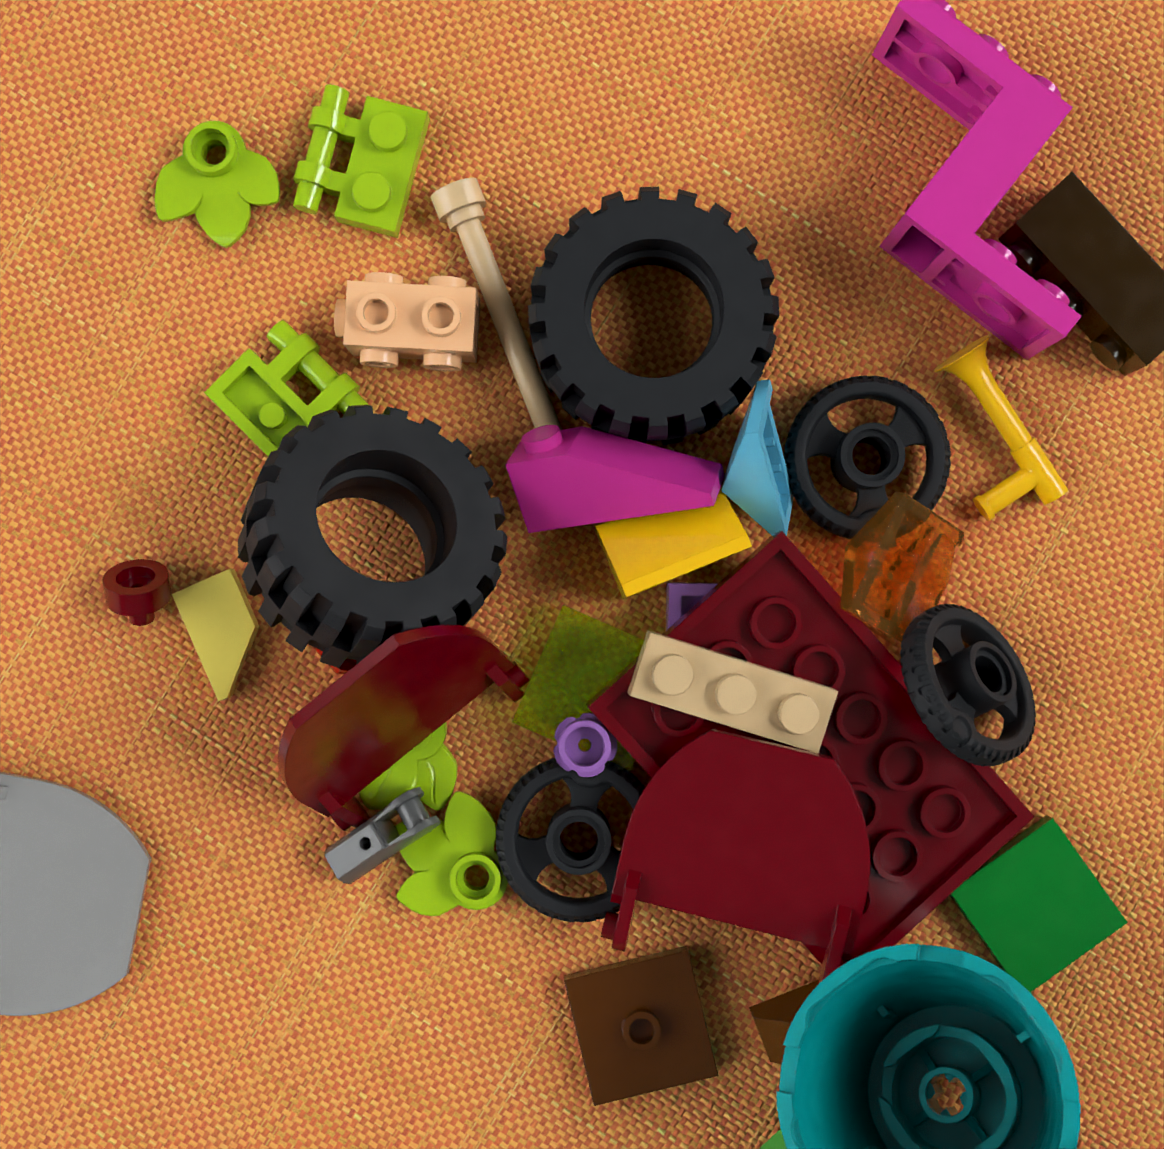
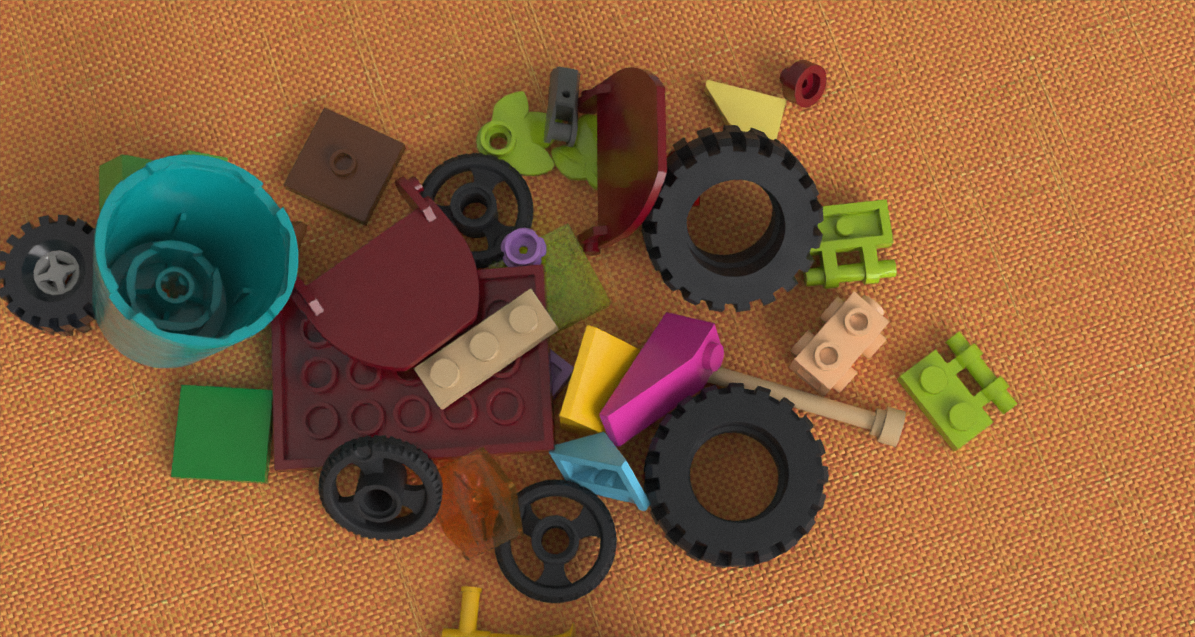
camera: 125 degrees right, 10 degrees down
(216, 192) = (999, 296): lime plate -> none

